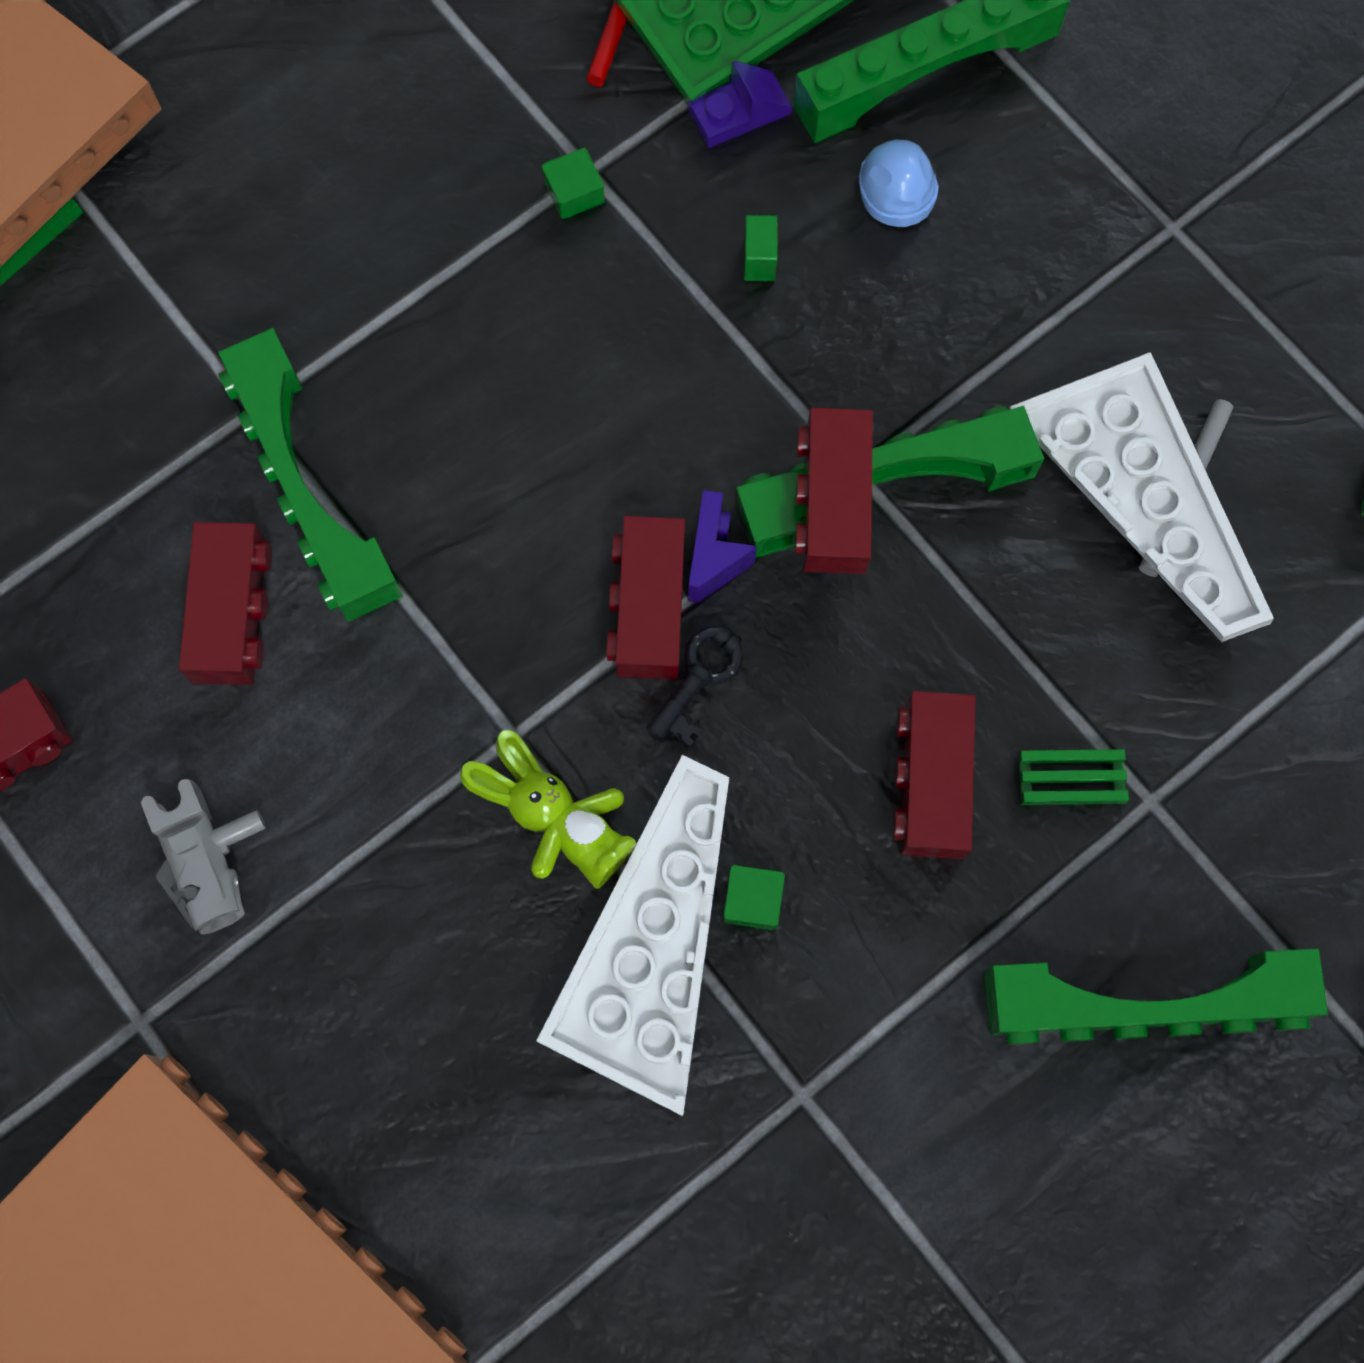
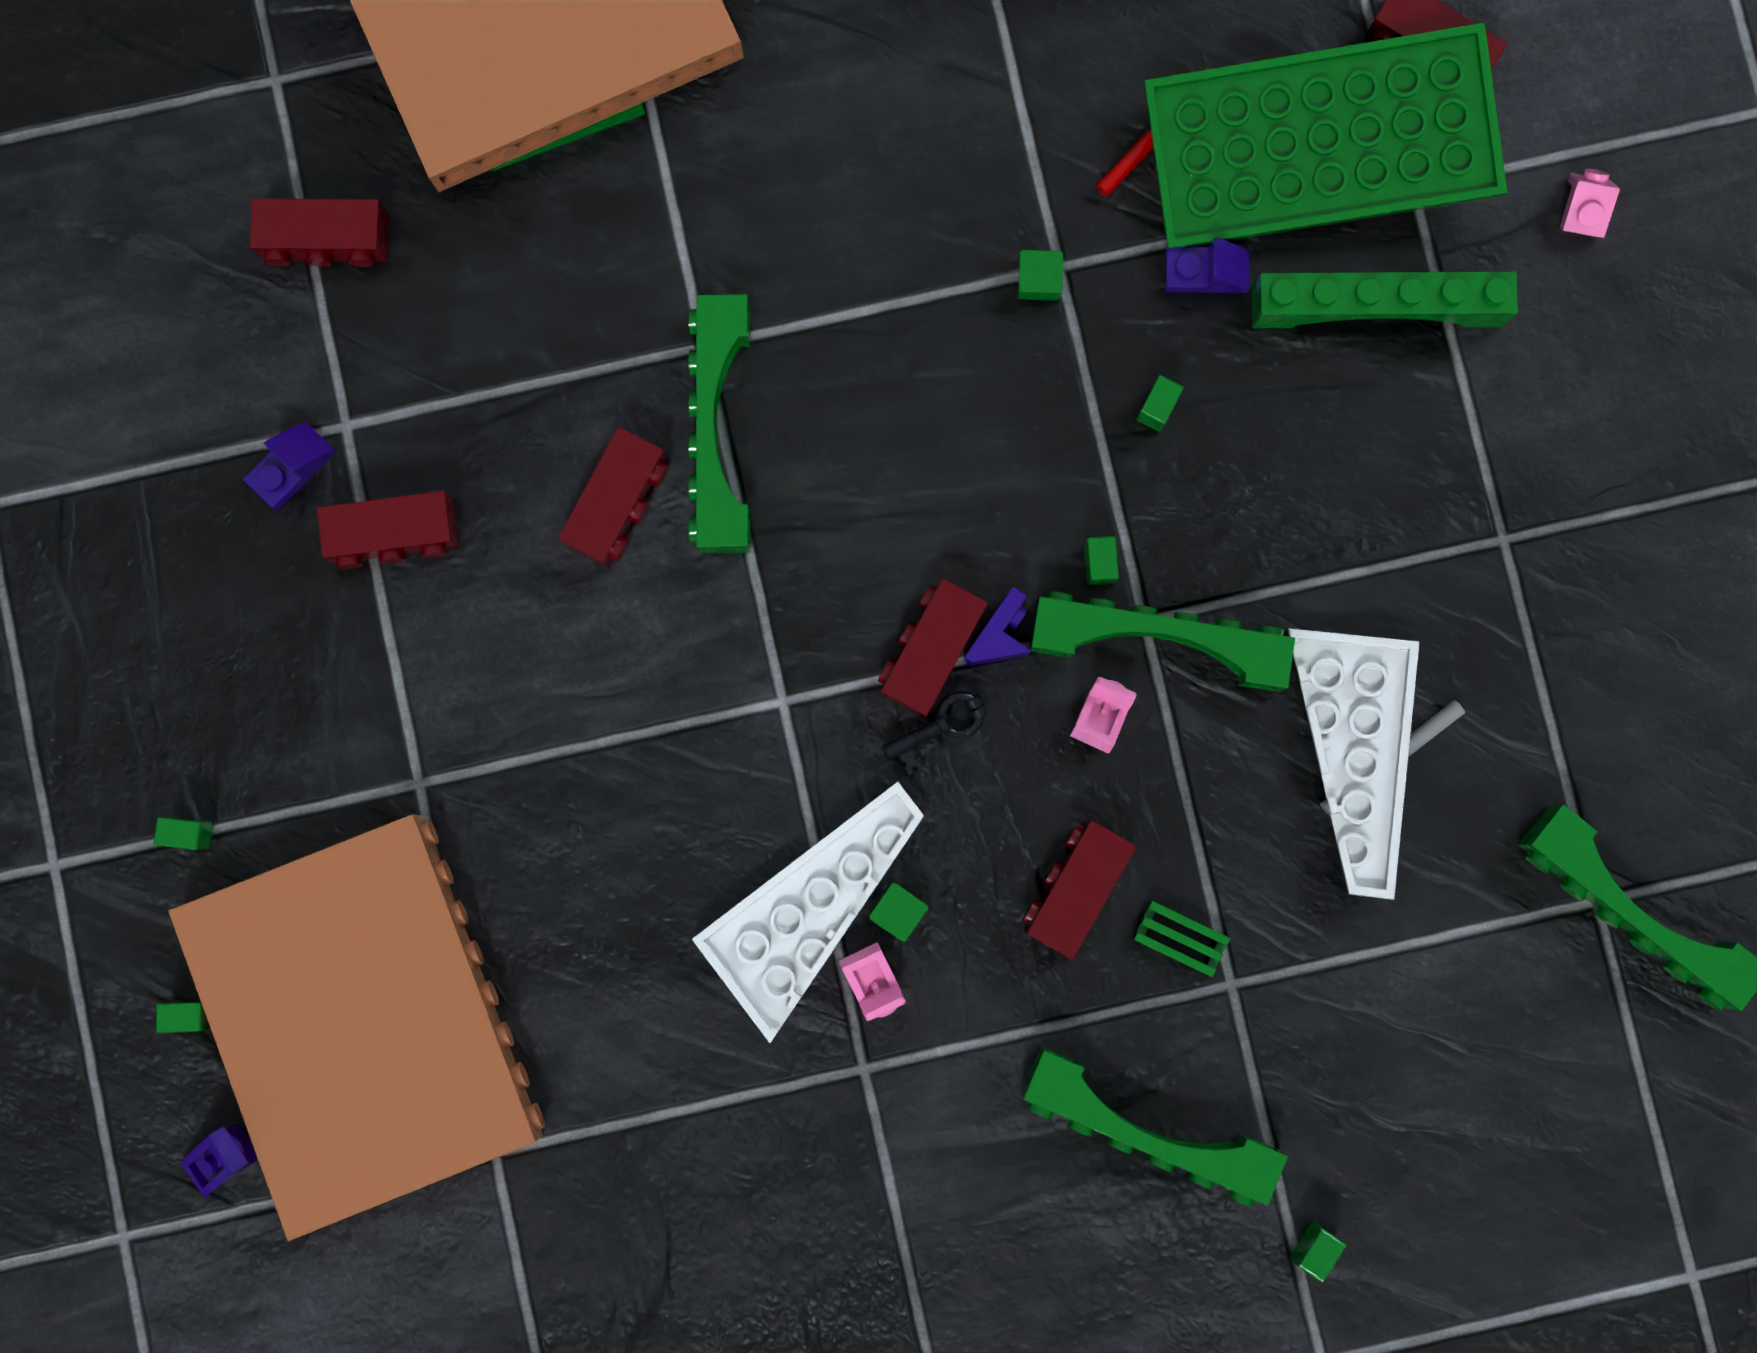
camera: 30 degrees right, 10 degrees up
(195, 860) = (507, 689): light grey piece -> none
(546, 806) = (780, 770): lime animal -> none
(764, 988) = (872, 982): none -> bright pink bracket
(778, 426) = (1100, 561): none -> green piece
(835, 491) = (1110, 640): dark red brick -> none
(869, 593) = (1103, 714): none -> bright pink bracket
(898, 183) = (1299, 399): light blue hat -> none

